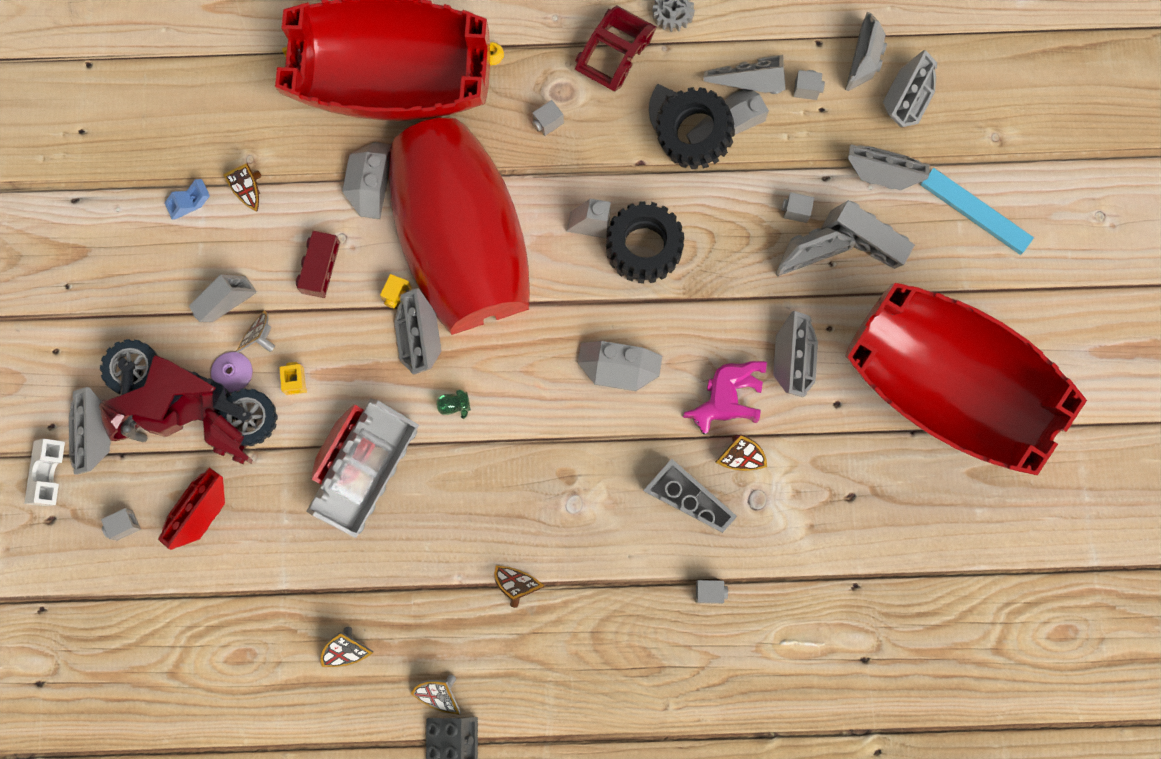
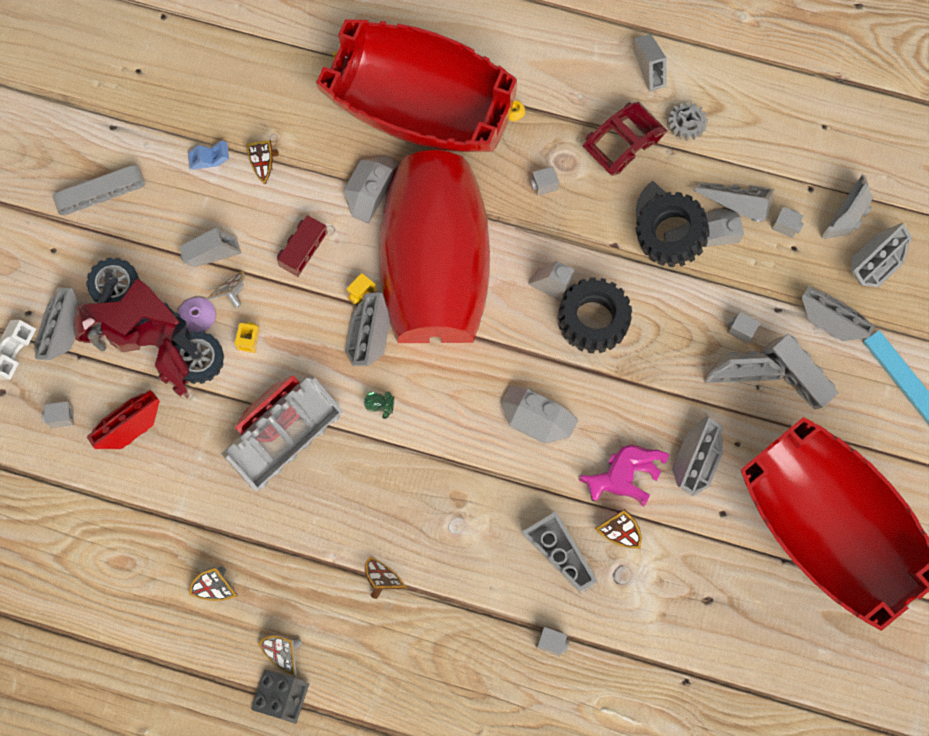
camera: 15 degrees right, 5 degrees down
(82, 272) = (98, 190): none -> light grey beam

